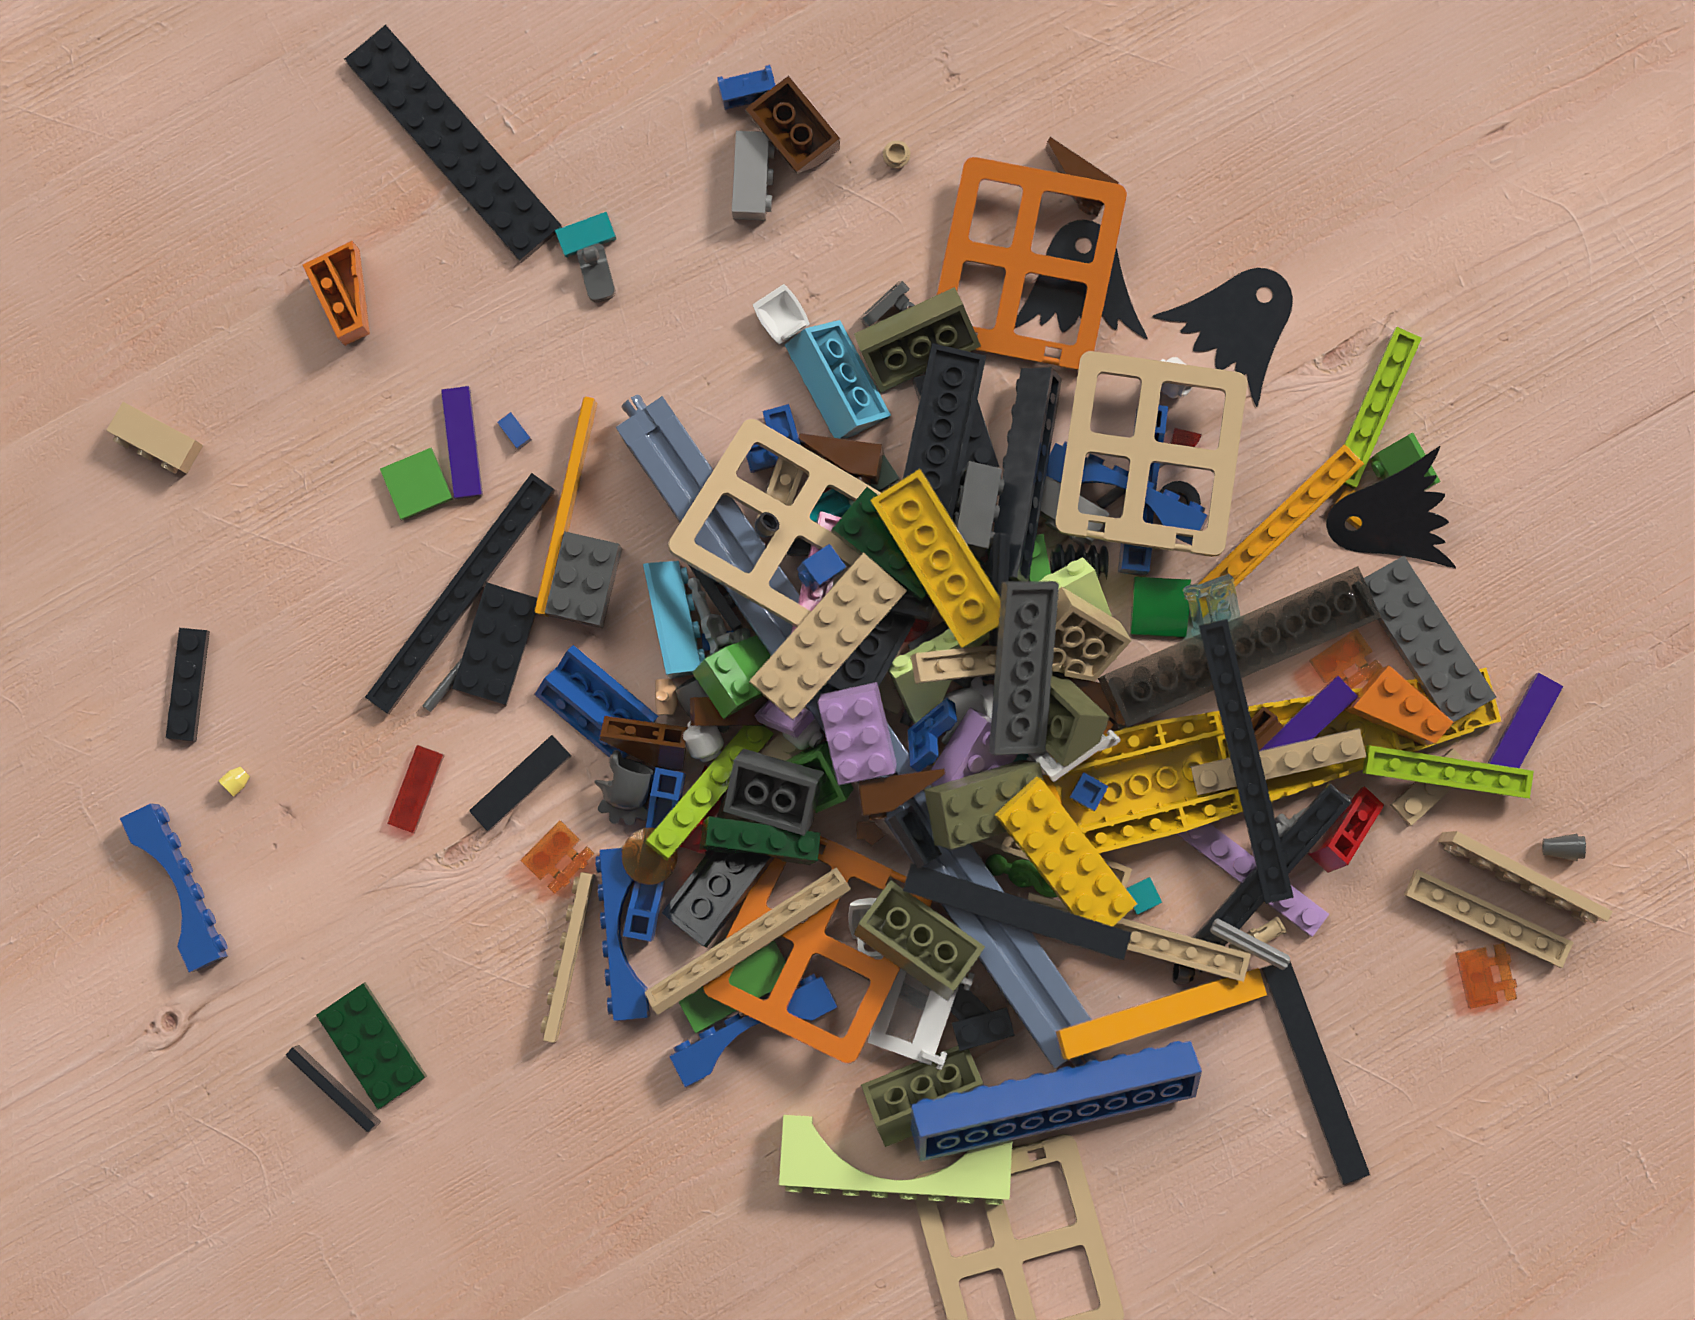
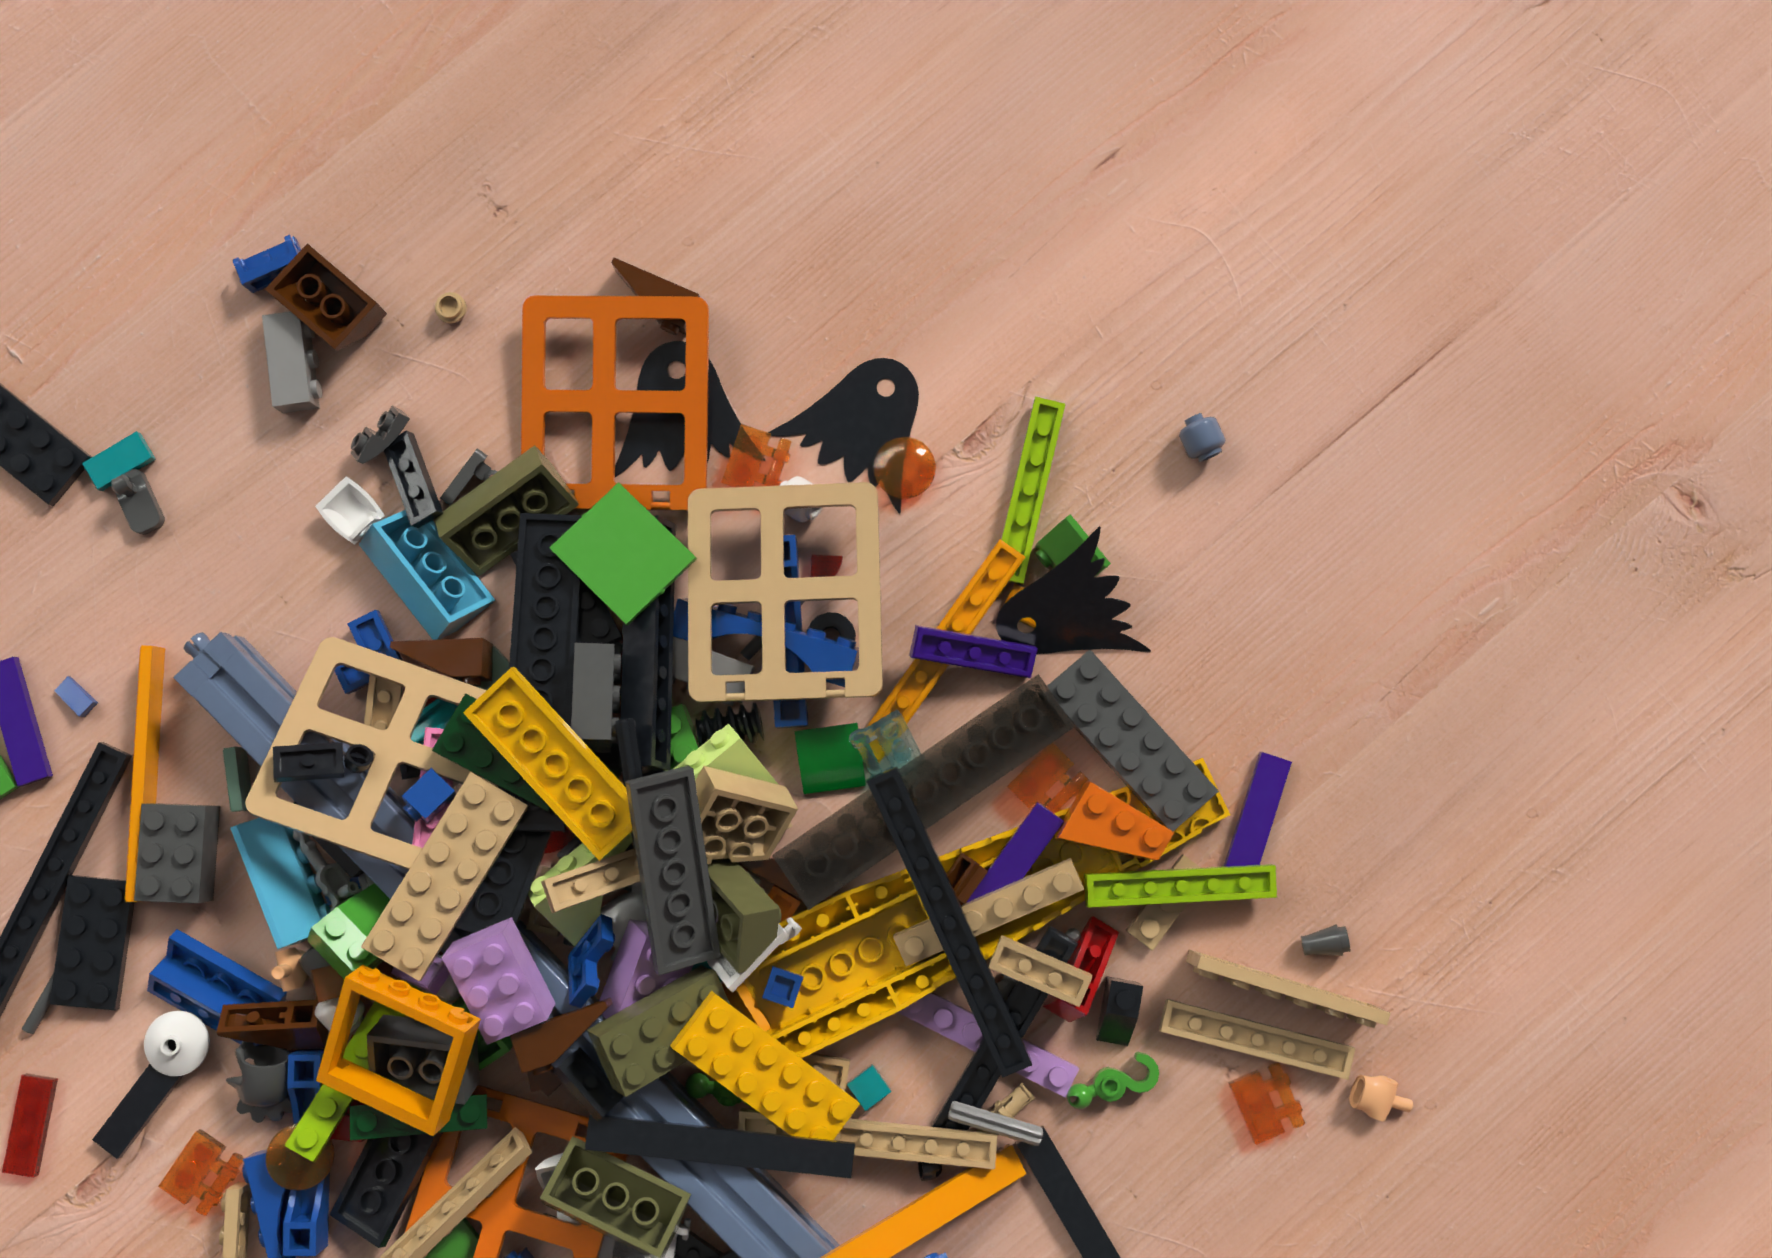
camera: 15 degrees left, 0 degrees up
(567, 750) = (190, 1038): none -> white dish
(645, 527) = (237, 777): none -> sand green tile
(726, 518) = (308, 762): none -> black plate
(741, 811) = (377, 1090): none -> light orange window
(808, 260) = (371, 443): none -> dark grey slope
(840, 297) = (413, 480): none -> black plate
(1017, 394) = (623, 553): none -> bright green piece
(1135, 331) = (748, 456): none -> clear orange plate
(1269, 367) = (904, 467): none -> clear orange dish
(1303, 537) = (973, 651): none -> dark purple tile
(1316, 818) = (1040, 971): none -> tan plate
(1355, 932) = (1111, 1083): none -> bright green piece
(1373, 871) = (1119, 1010): none -> black slope
(1537, 389) = (1202, 437): none -> sand blue head
(1584, 988) = (1377, 1096): none -> light nougat piece

